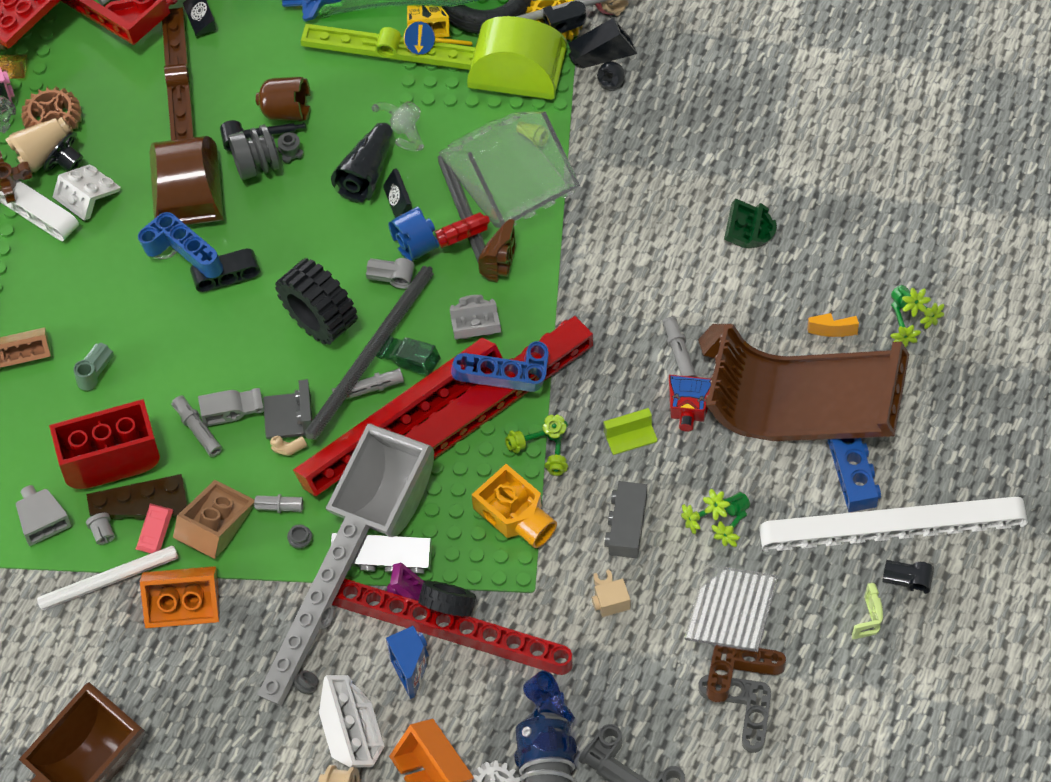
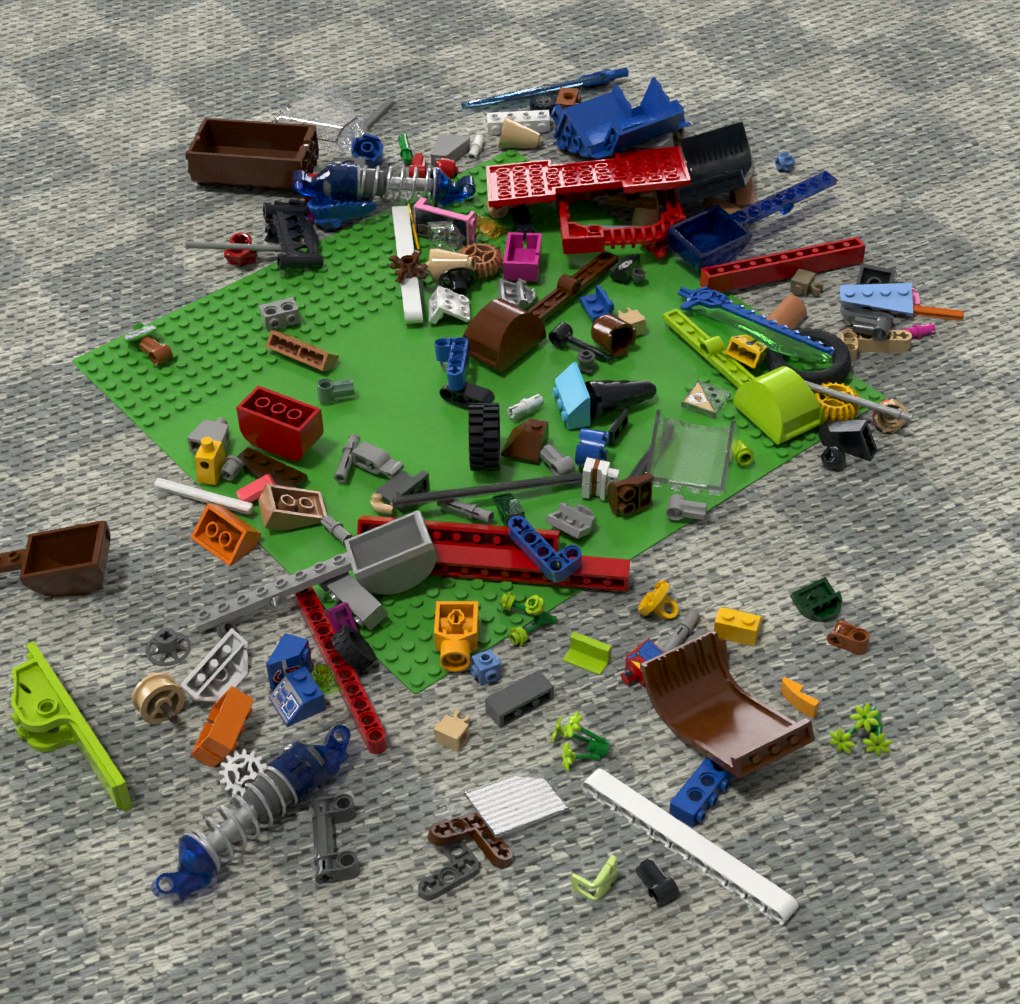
camera: 45 degrees right, 15 degrees down
(43, 40) = (522, 220): none -> black hinge
(75, 533) = (209, 461): none -> yellow torso
(96, 78) = (522, 262): none -> dark pink piece
(133, 125) = (516, 293): none -> light grey slope
(223, 13) = (638, 275): none -> dark grey hinge
(225, 76) = (597, 304): none -> blue bracket
(253, 152) = (557, 346): dark grey wheel -> none
(269, 742) = (167, 644): none -> dark grey wheel
(282, 67) = (635, 319): none -> tan brick
(291, 238) = (525, 406): none -> white pin
(299, 536) = (323, 553): dark grey plate -> none
(331, 194) = (572, 398): none -> medium azure slope
(344, 266) = (527, 441): none -> reddish brown slope
(403, 121) = (664, 391): clear piece -> none
(420, 38) = (731, 353): blue piece -> none
(439, 101) = (706, 399): none -> tile
(448, 684) = (297, 697): none -> blue slope
(451, 648) = (322, 675): none -> clear neon green cone
(455, 259) = (597, 477): none -> white hips
(462, 229) = (627, 467): red rock -> none
(548, 230) = (679, 507): none -> light grey piece
(566, 17) = (835, 400): black leg -> none
(569, 516) = (486, 667): none -> medium blue brick
(630, 334) = (656, 600): none -> yellow tile
(714, 300) = (738, 625): none -> yellow slope
(808, 238) = (850, 638): none -> dark orange piece

